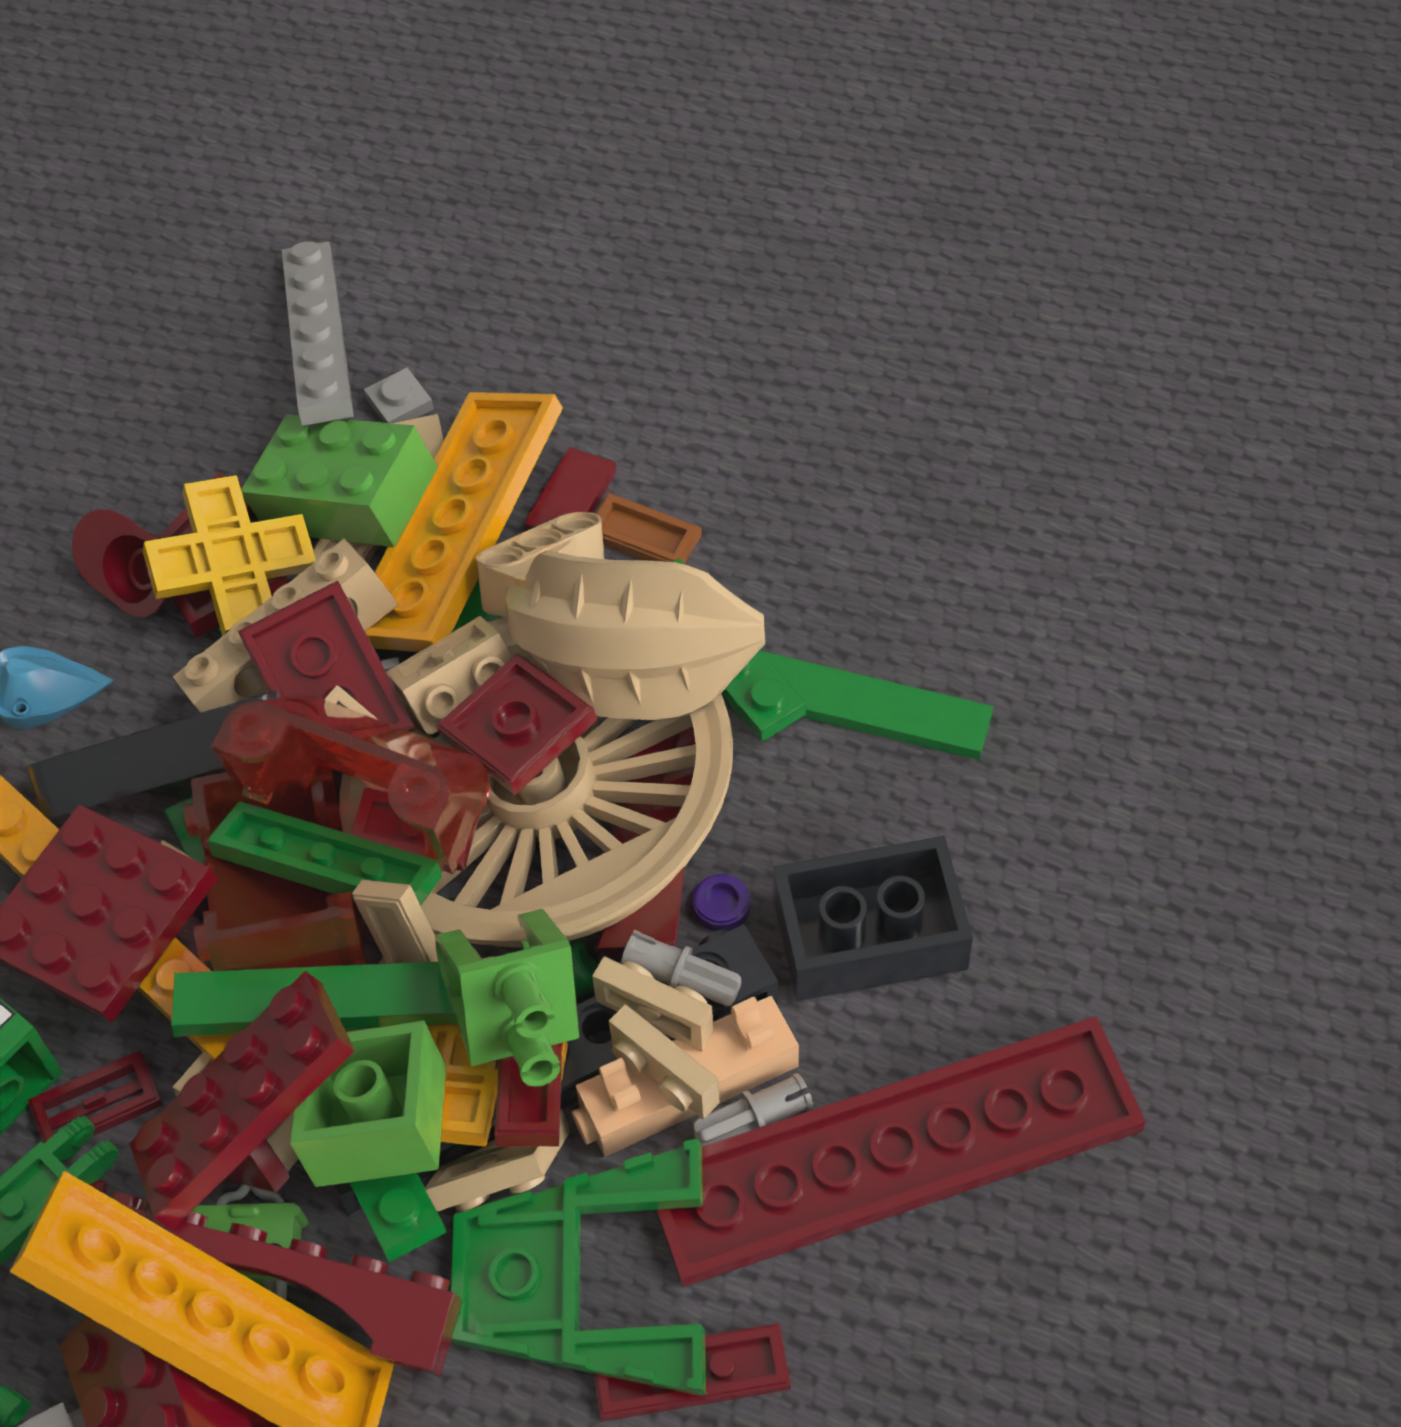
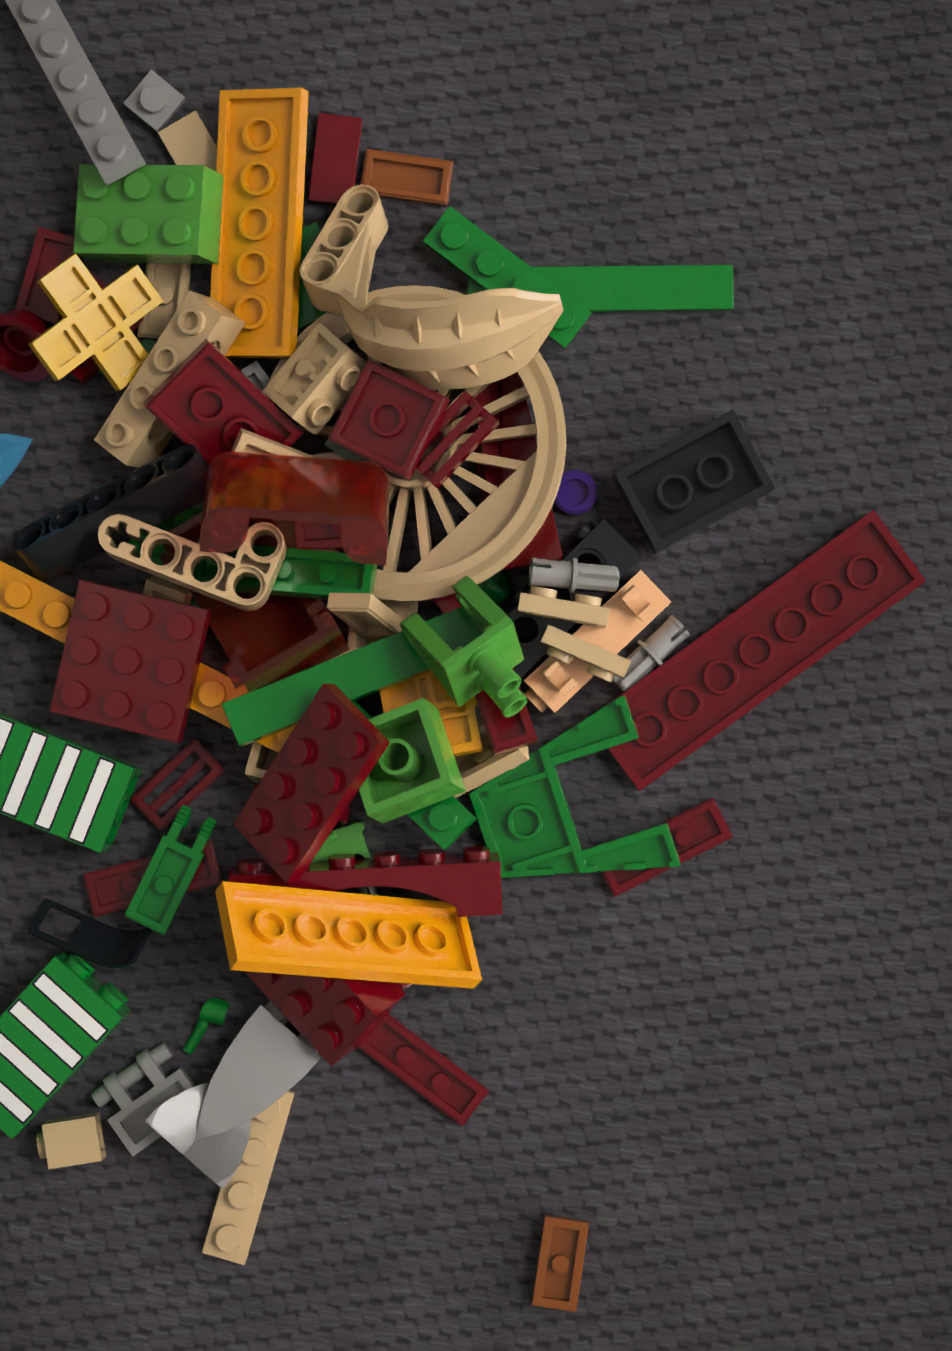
camera: 20 degrees left, 30 degrees up
(212, 791) = (187, 557): none -> tan beam
(581, 761) = (467, 448): none -> dark red tile

